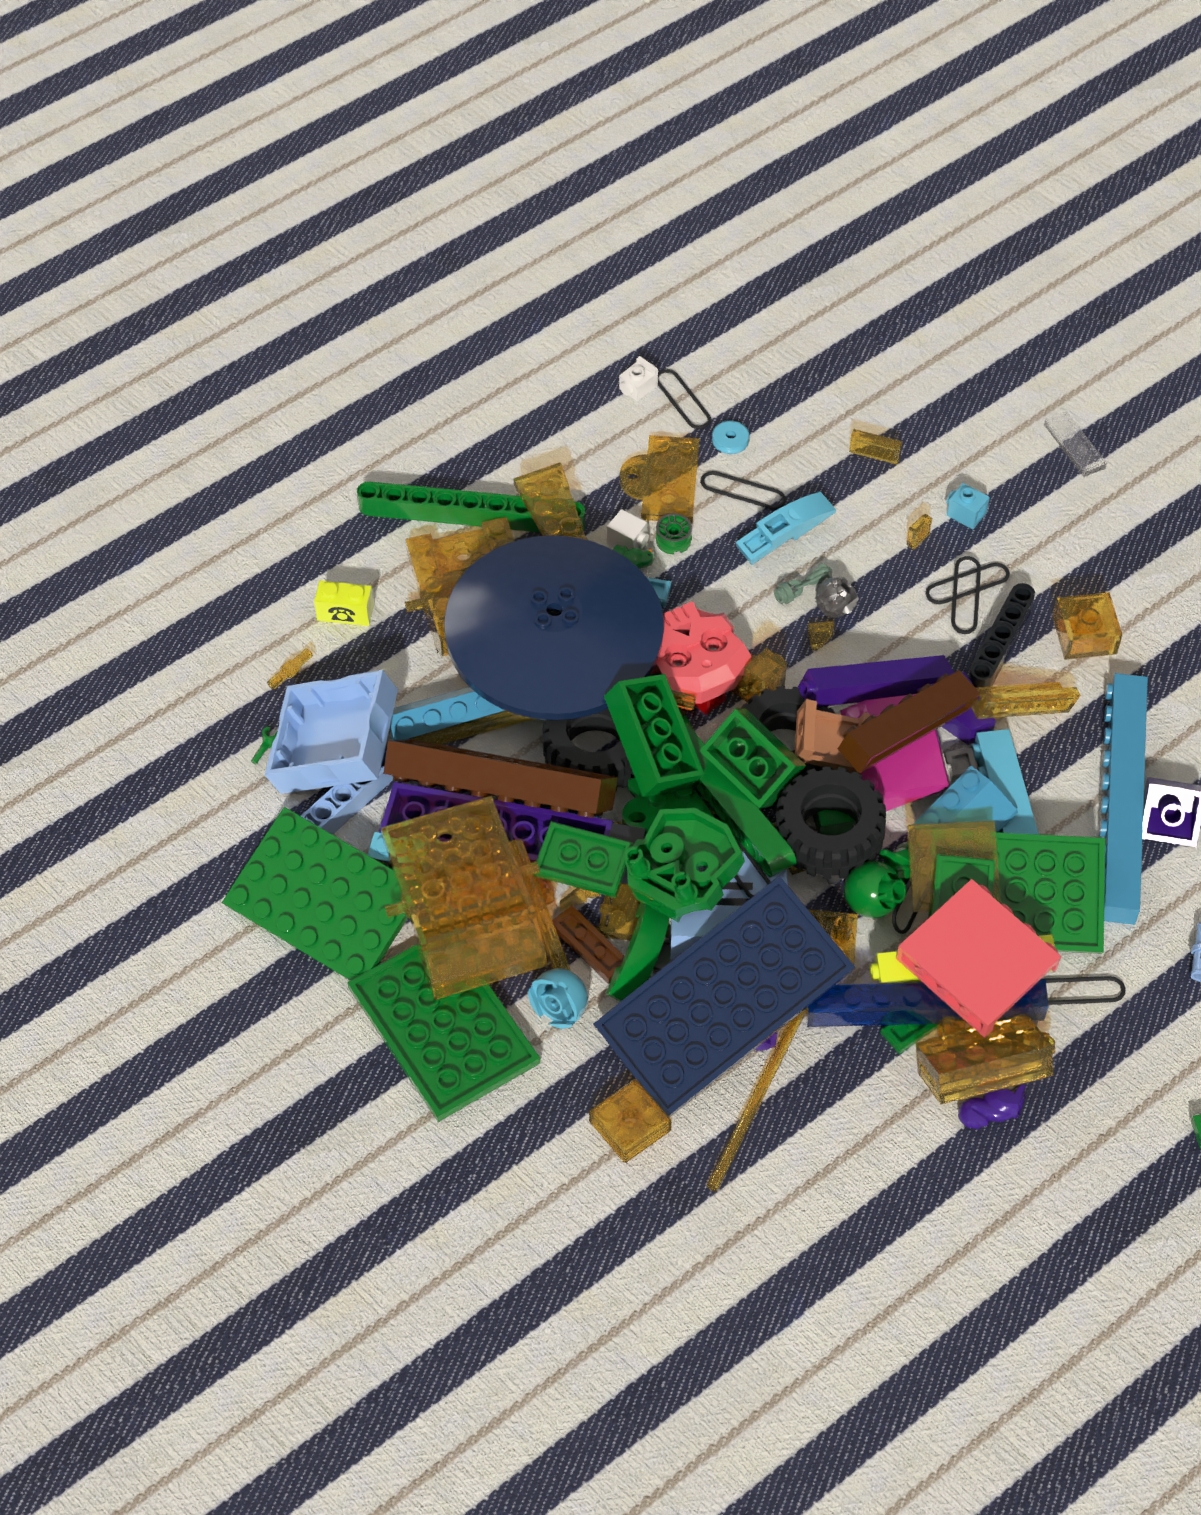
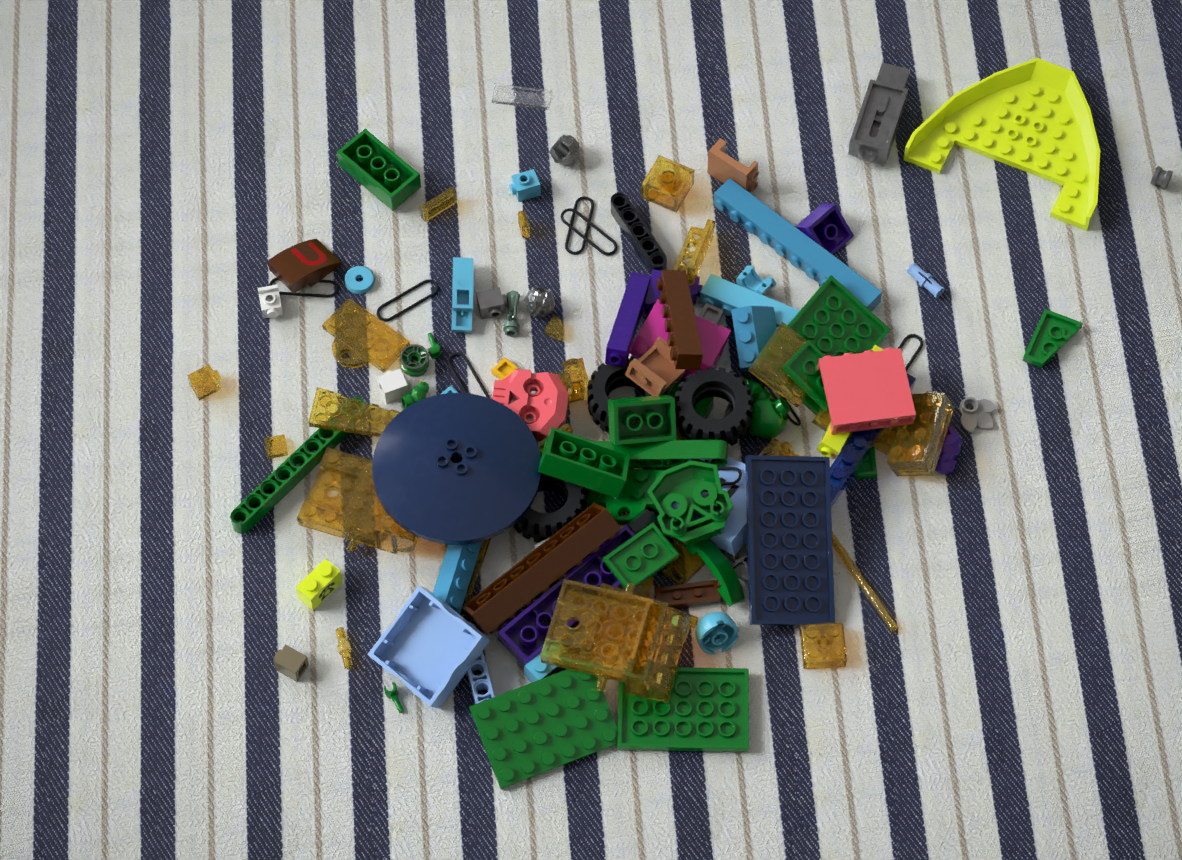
camera: 55 degrees left, 5 degrees up
(237, 632) = (290, 662): none -> dark tan brick
(480, 480) = (276, 446): none -> clear yellow tile
(502, 381) = (204, 382): none -> clear yellow brick
(691, 579) = (471, 368): none -> black piece
(702, 545) = (433, 351): none -> green hand
(704, 379) = (303, 264): none -> reddish brown slope
(736, 616) = (503, 369): none -> yellow tile
(797, 557) = (491, 303): none -> flat silver brick
(867, 373) = (379, 169): none -> green brick
(1039, 778) = (749, 279): none -> medium azure piece
(1041, 515) = (565, 150): none -> flat silver piece
(1072, 1115) = (977, 417): none -> light grey plate
(1162, 692) = (725, 167): none -> nougat panel

